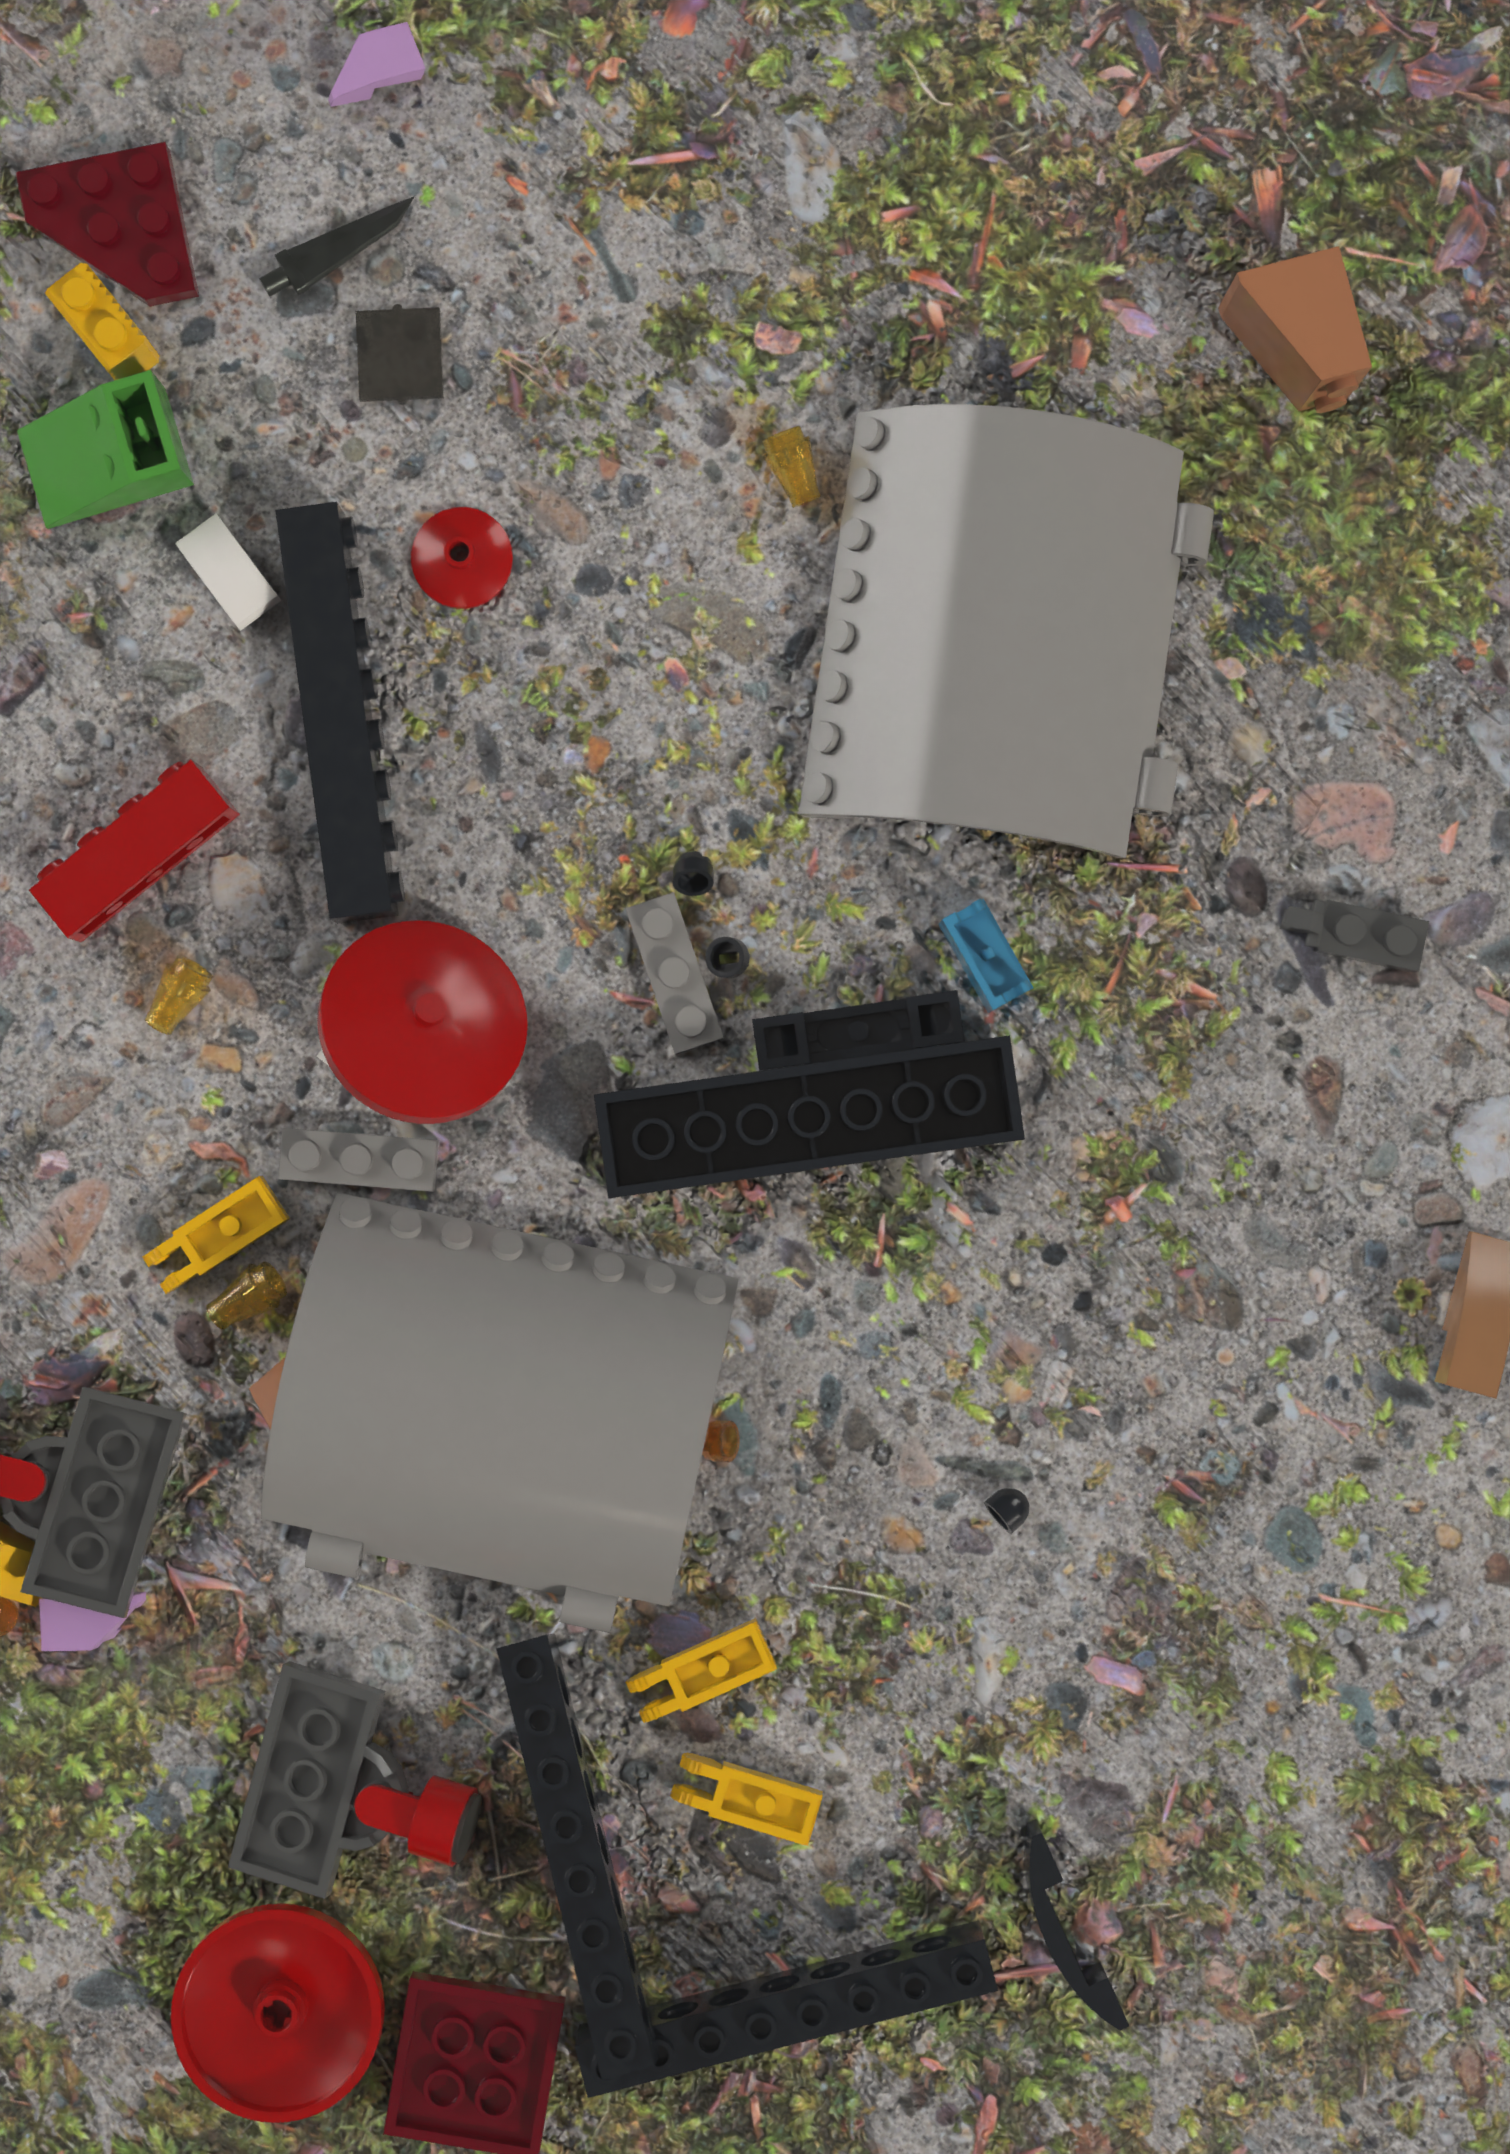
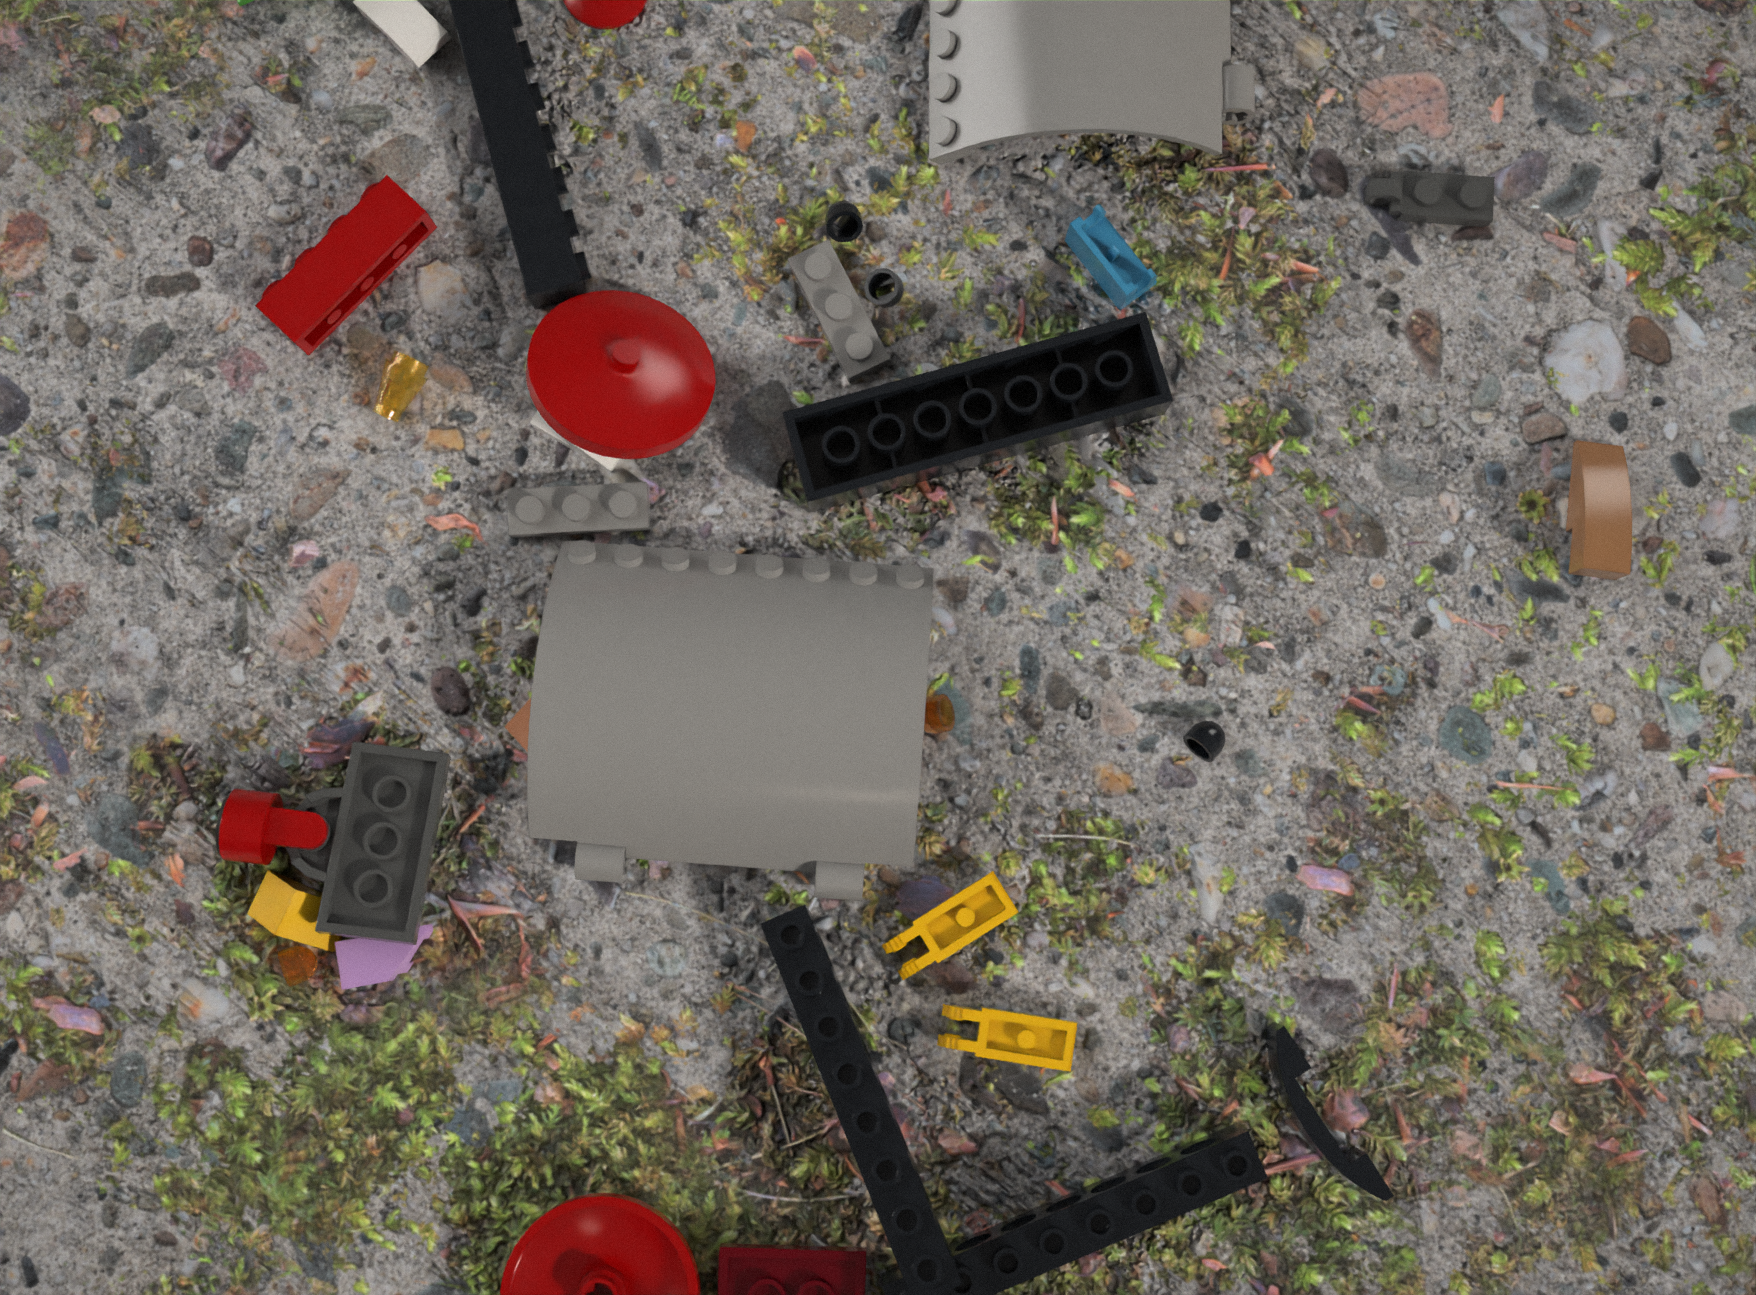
camera: 10 degrees left, 5 degrees down
(220, 1232) = (461, 590): yellow hinge -> none
(248, 1295) = (494, 641): clear yellow cone -> none
(333, 1789) = (626, 1079): dark grey plate -> none
(858, 1030) = (1056, 317): black slope -> none

